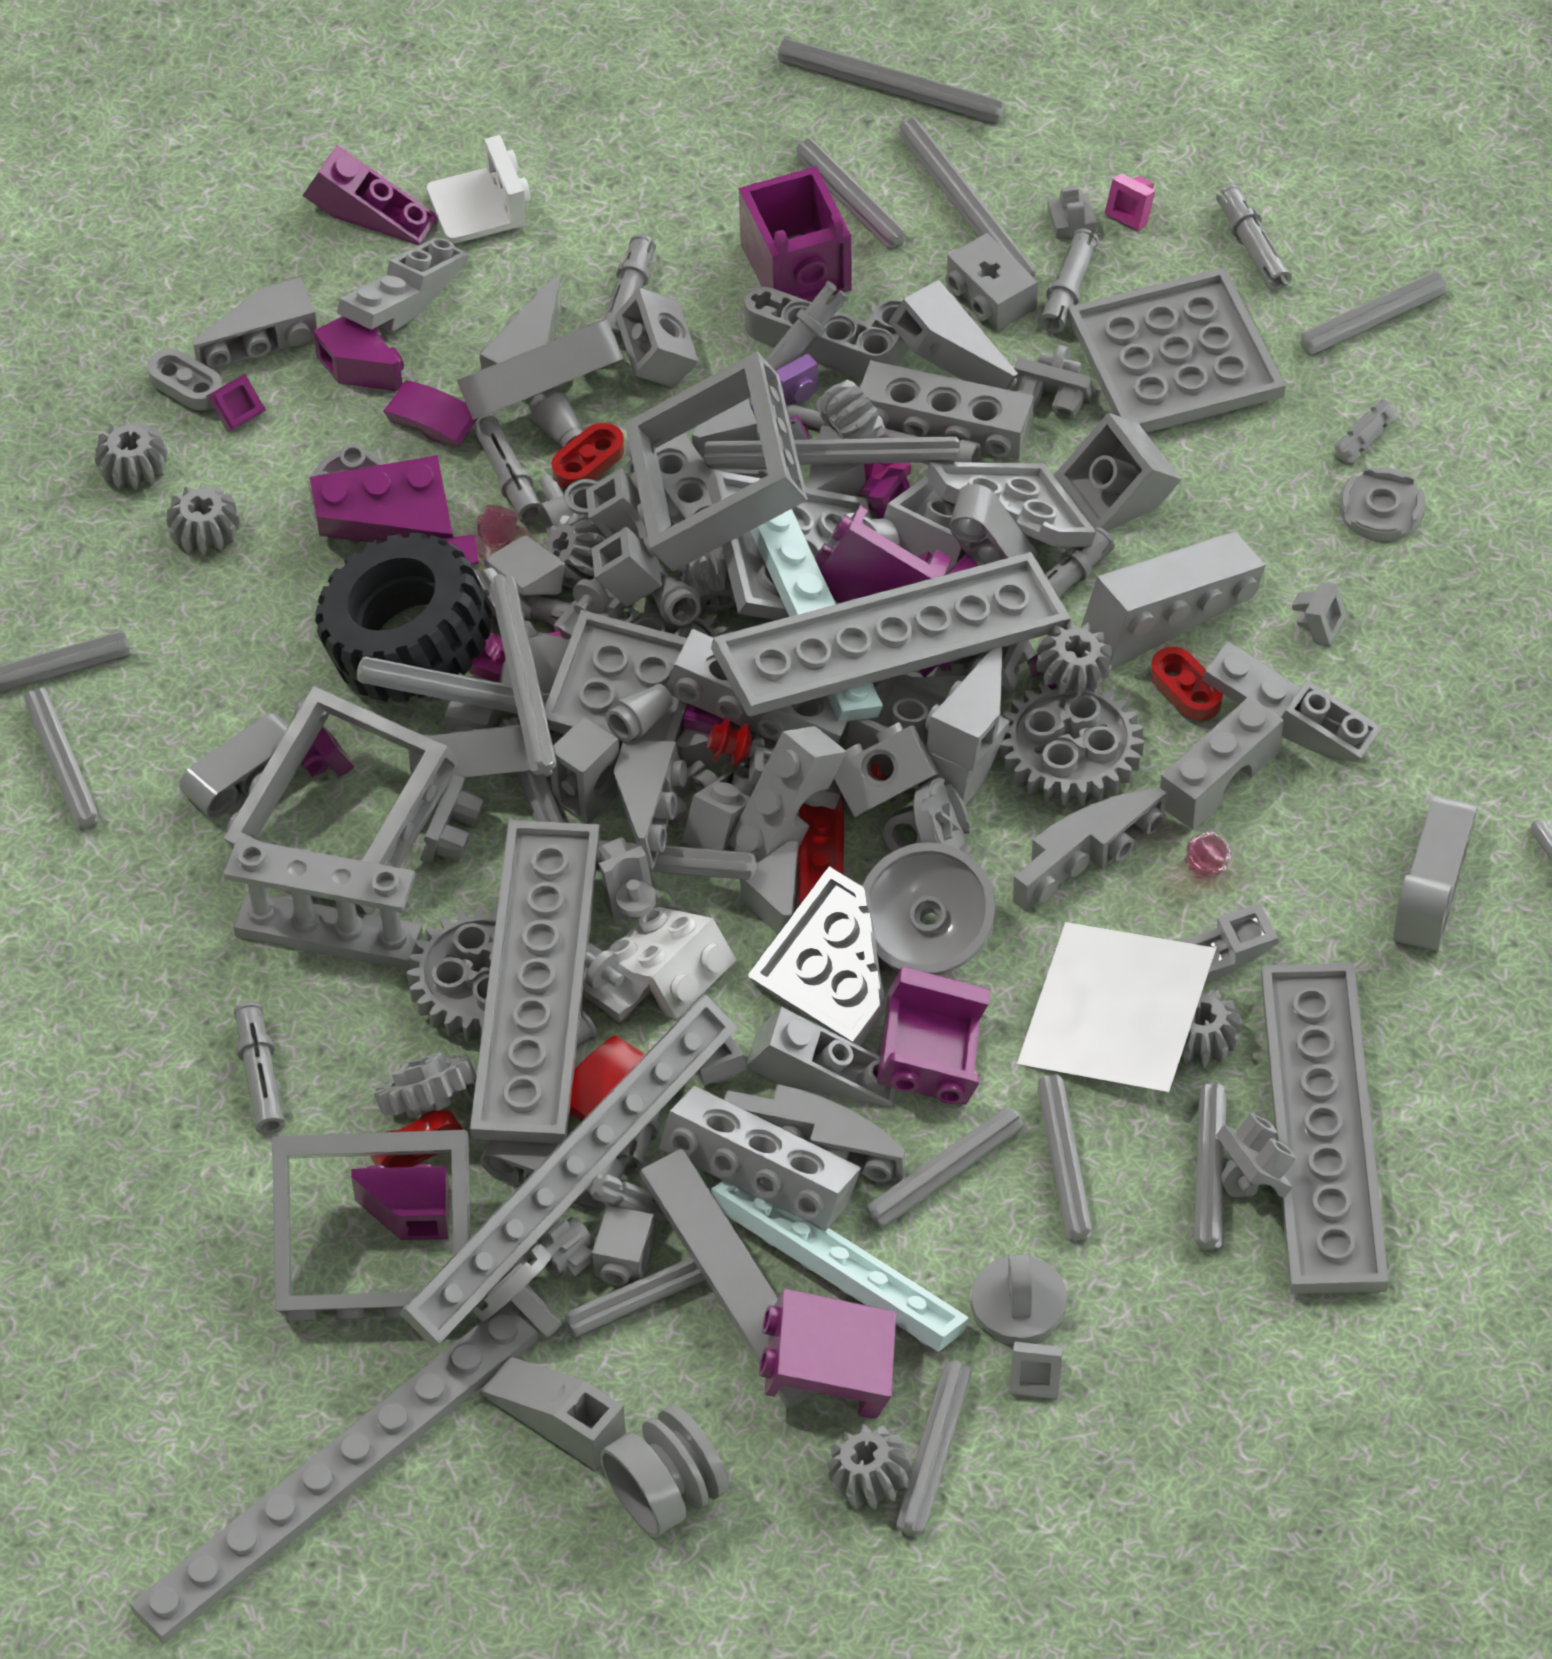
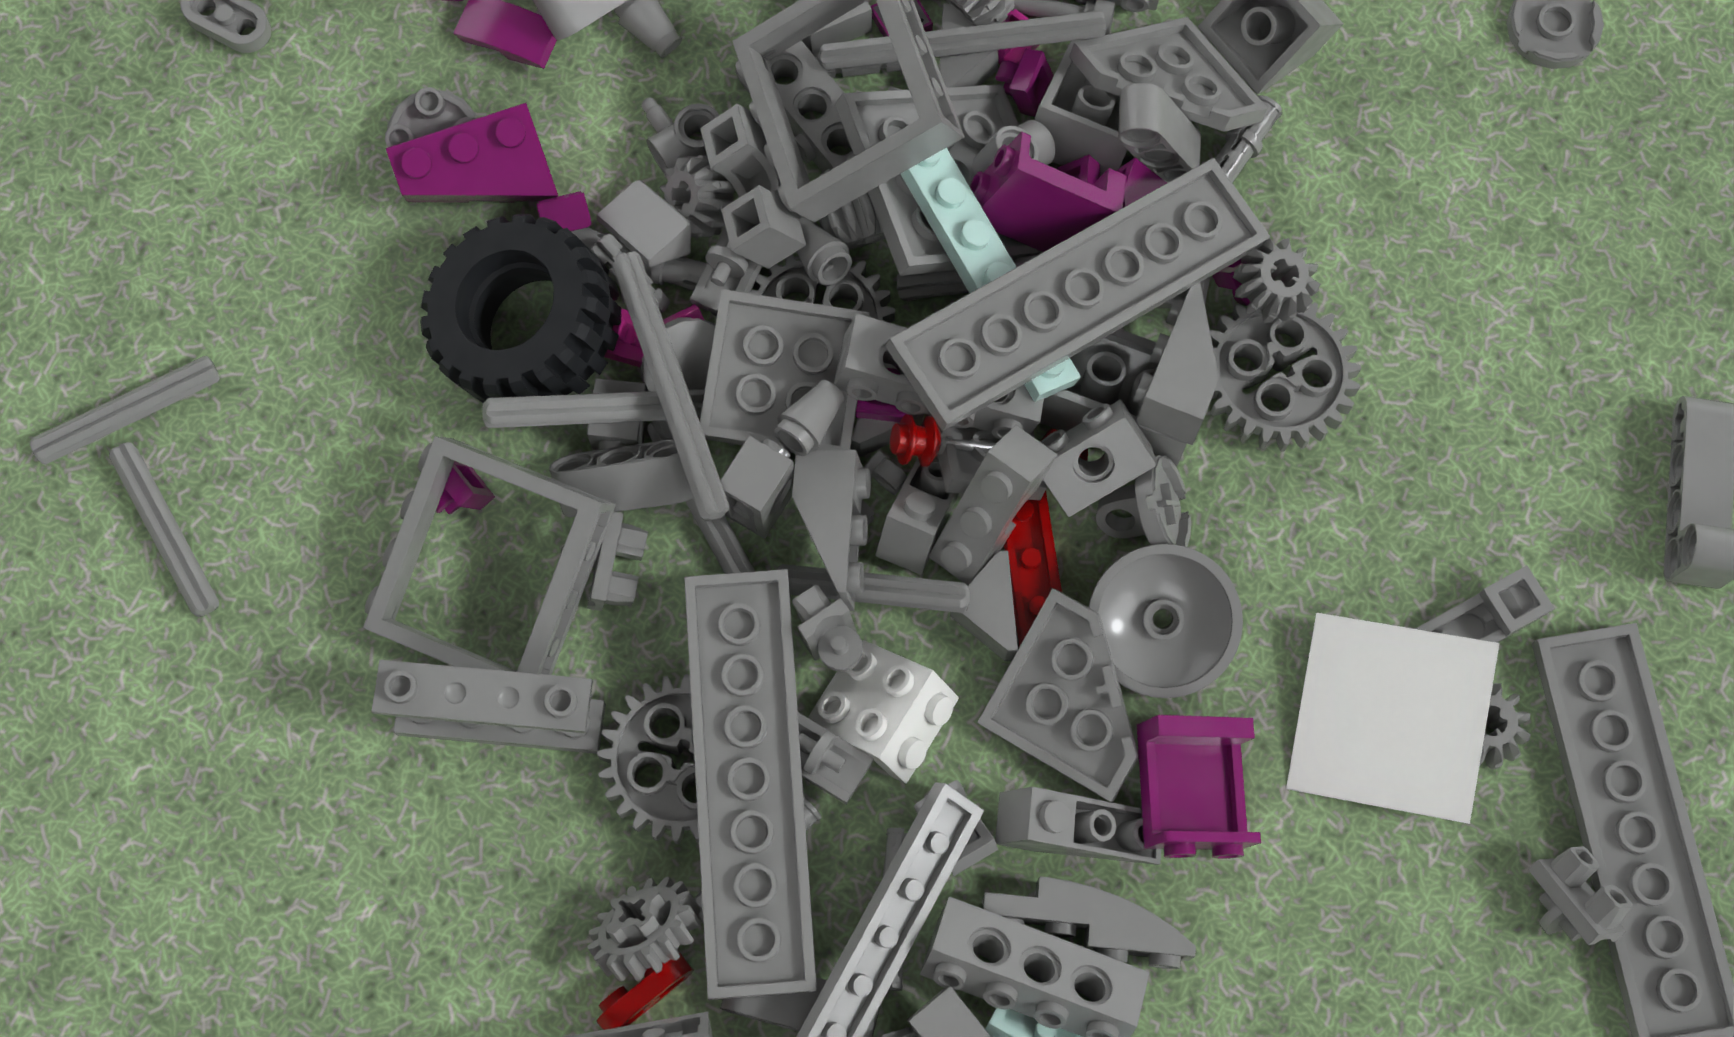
camera: 10 degrees left, 20 degrees up
(131, 454) = (170, 109): light grey gear -> none
(203, 519) = (268, 216): light grey gear -> none
(225, 774) = (364, 520): light grey beam -> none
(236, 402) = (287, 42): magenta tile -> none
(251, 1025) = (430, 855): light grey pin -> none
(497, 526) = (604, 167): clear pink plate -> none
(523, 500) = (629, 132): light grey pin -> none
(583, 455) = (686, 67): red plate -> none
(600, 1074) = (841, 875): red slope -> none
(944, 1167) = (1233, 942): light grey axle -> none
(1064, 1158) = (1362, 911): light grey axle -> none
(1092, 834) = (1326, 490): light grey slope -> none
(1171, 594) = (1359, 174): light grey wedge -> none
(1187, 686) = (1393, 278): red plate -> none
(1207, 855) = (1452, 501): clear pink plate -> none
(1209, 1168) = (1522, 902): light grey axle -> none
(1239, 742) = (1448, 382): light grey arch -> none
(1309, 713) = (1510, 303): light grey slope -> none
(1321, 612) = (1517, 173): light grey tile -> none

